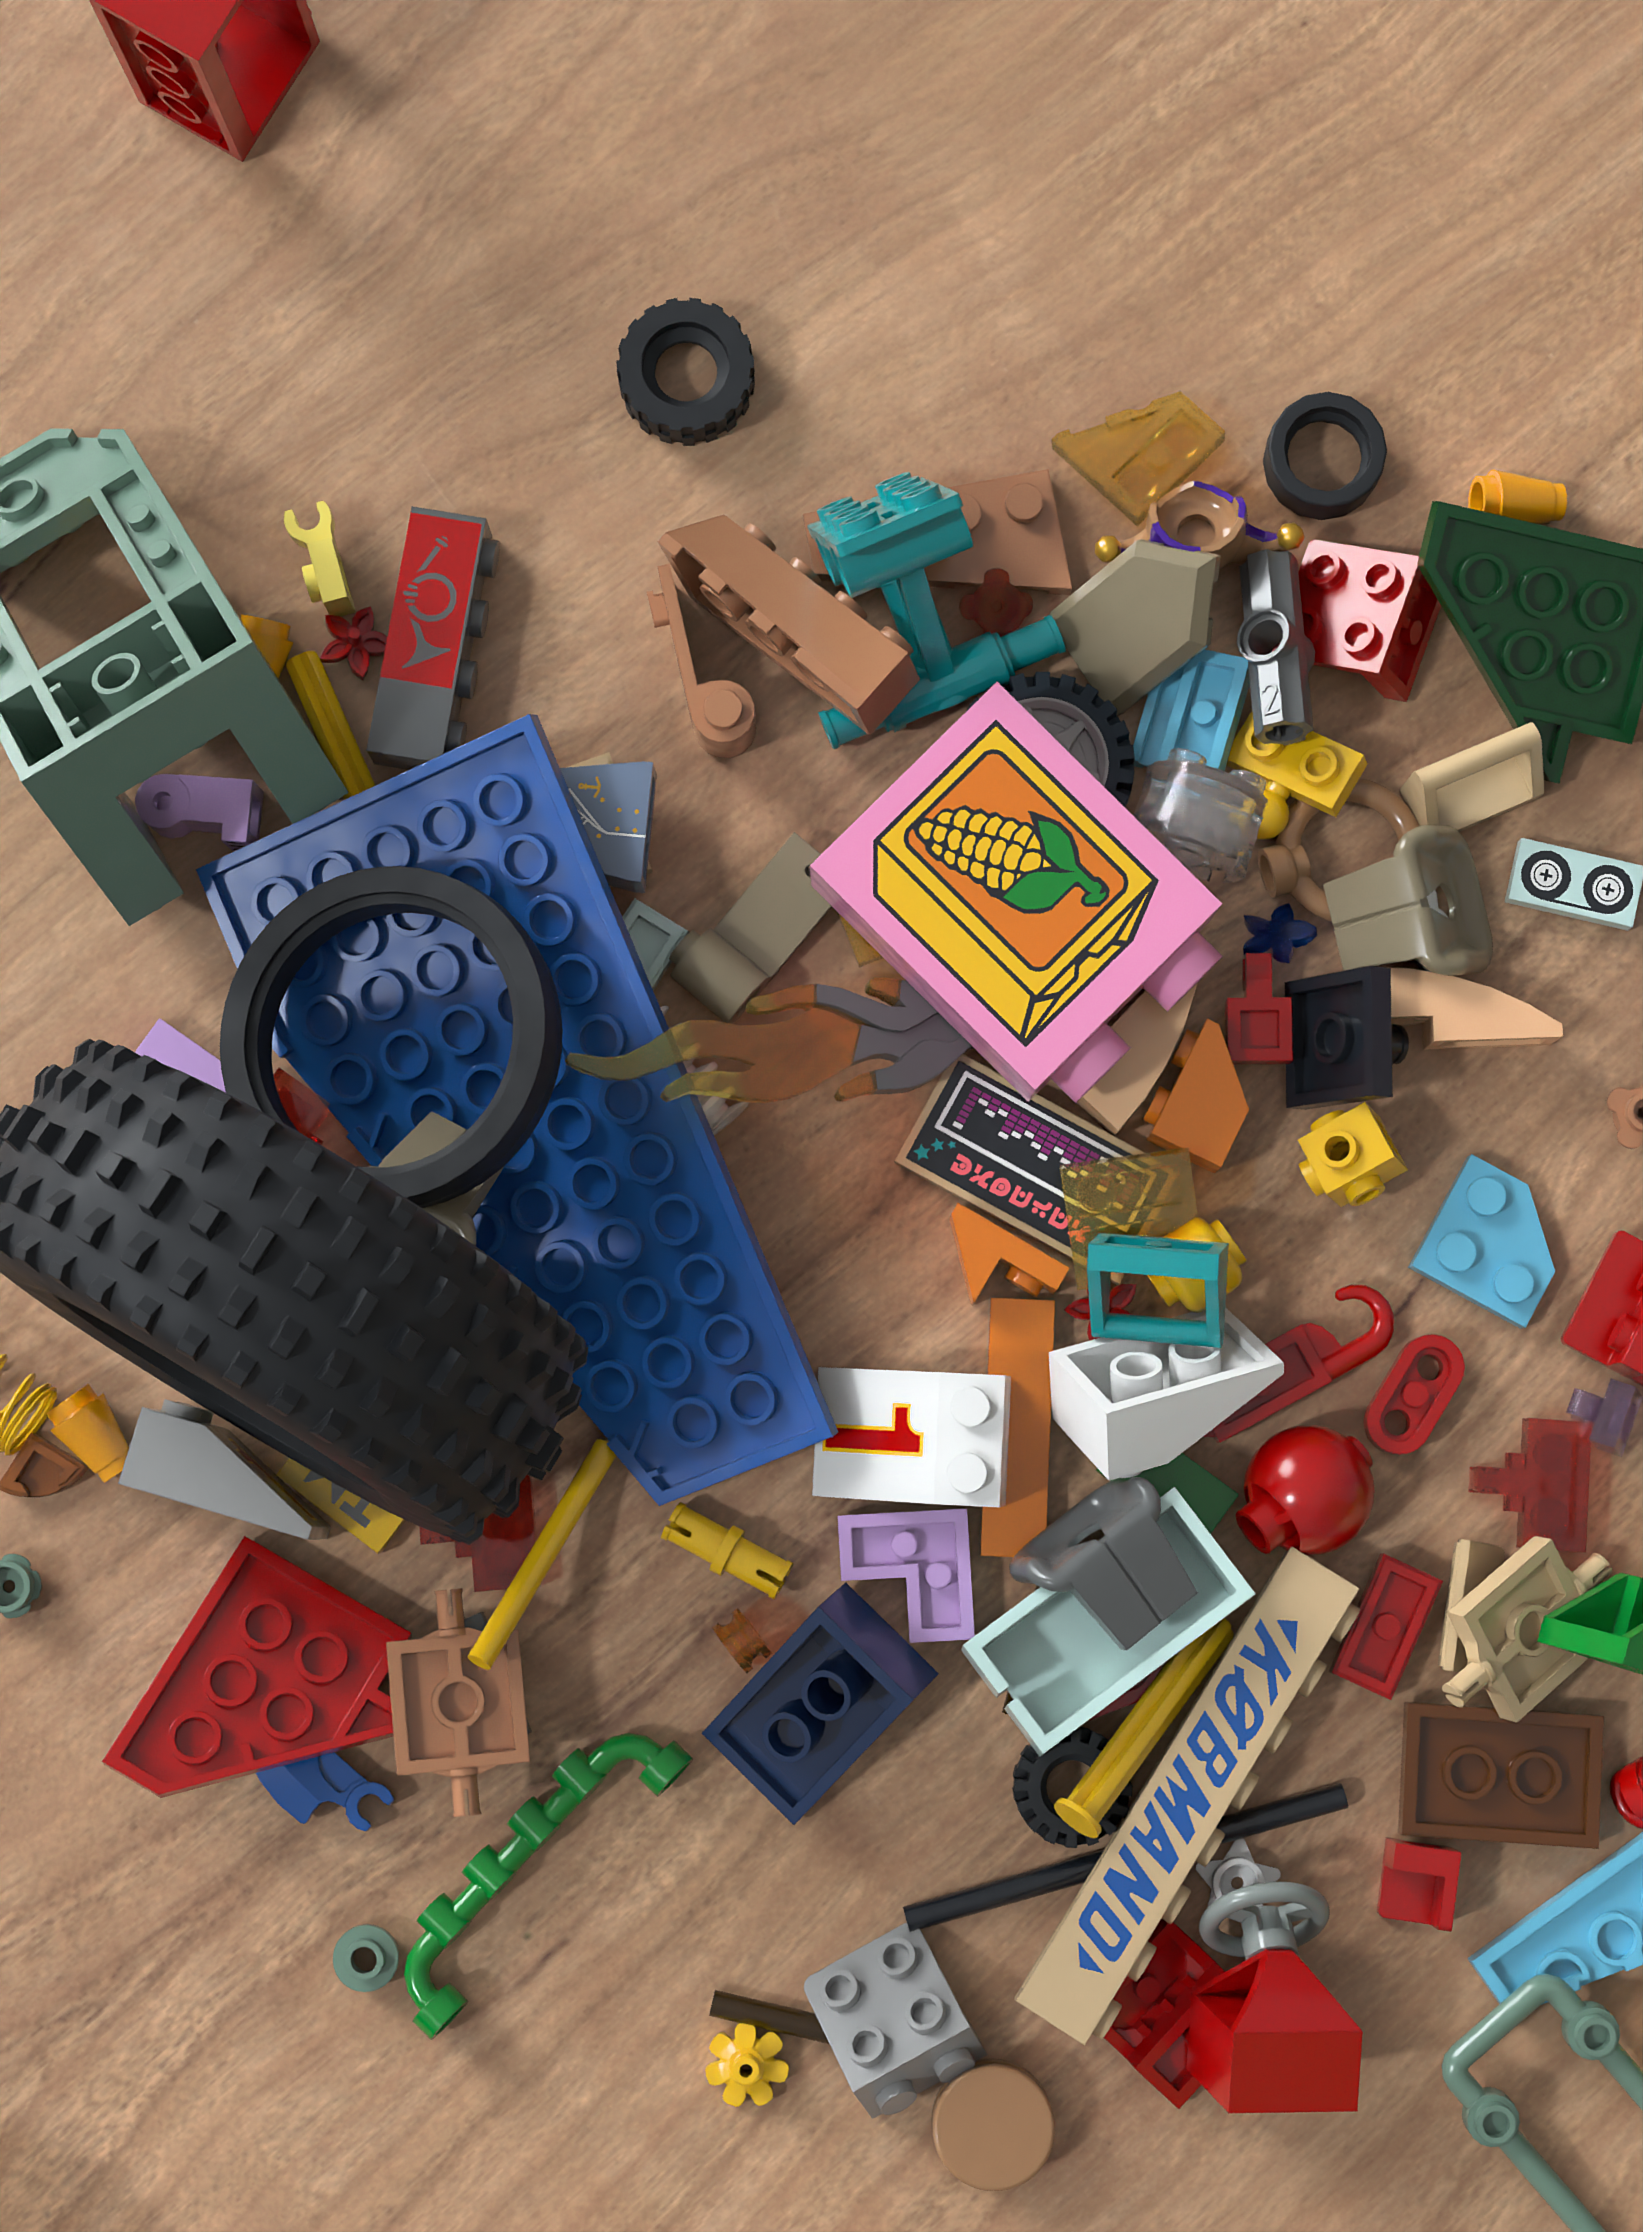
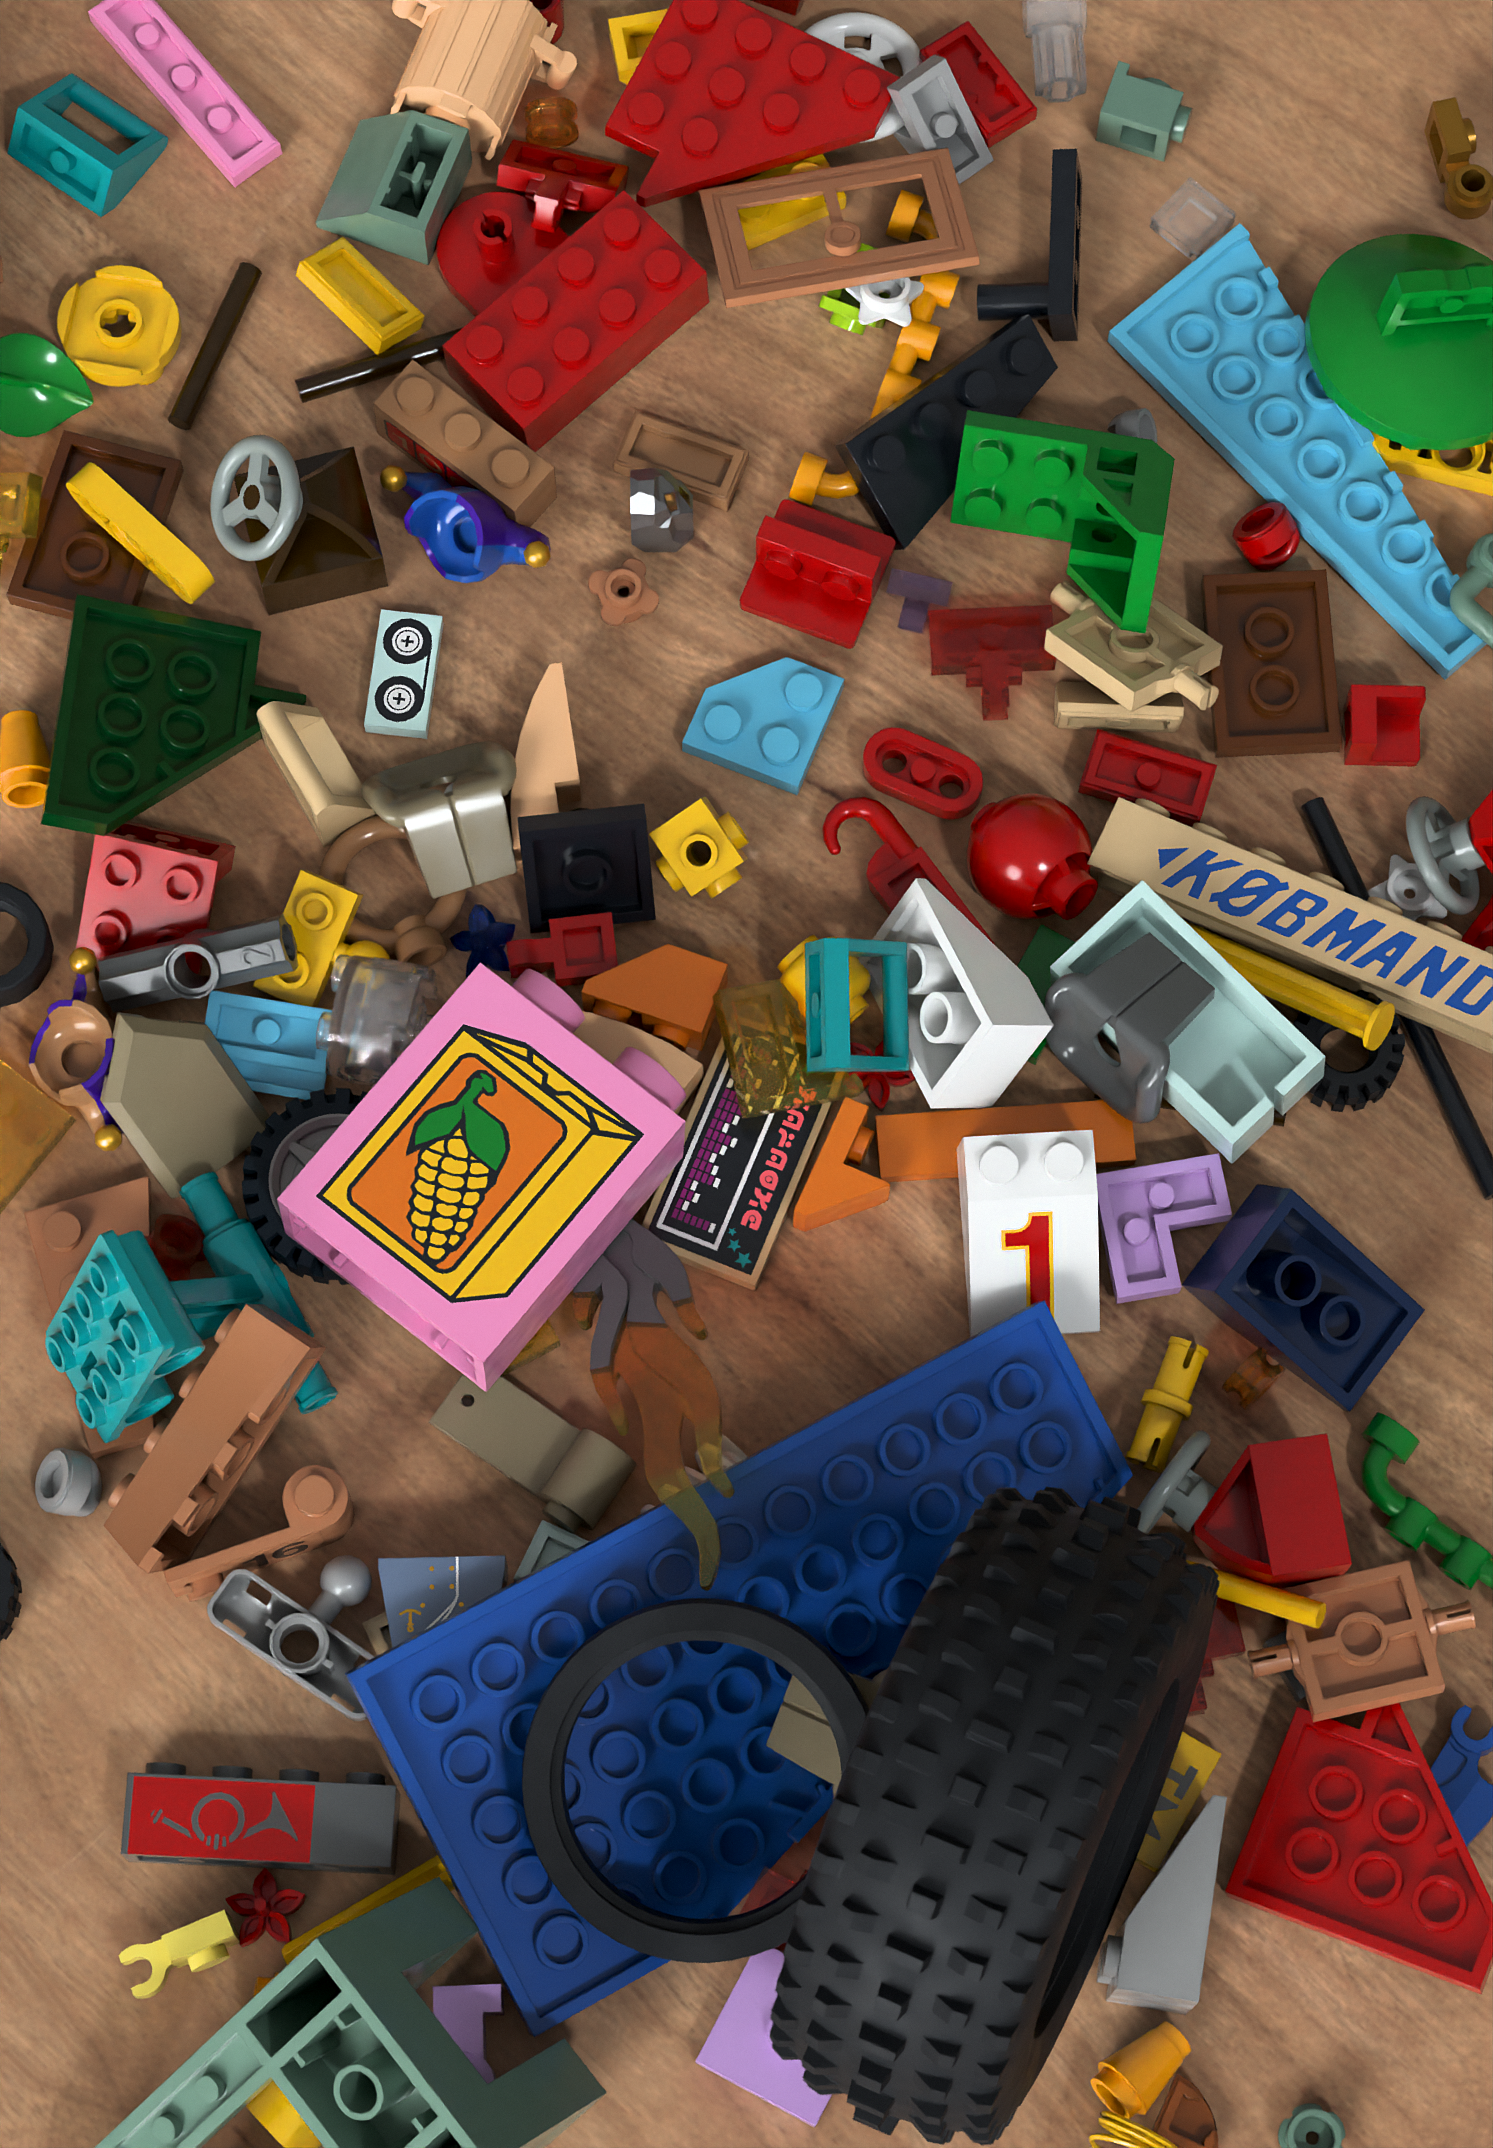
camera: 100 degrees left, 10 degrees down
(586, 1623) = (1269, 1518): none -> red piece
(622, 666) = (343, 1584): none -> light grey piece
(776, 492) = (68, 1483): none -> light grey tile

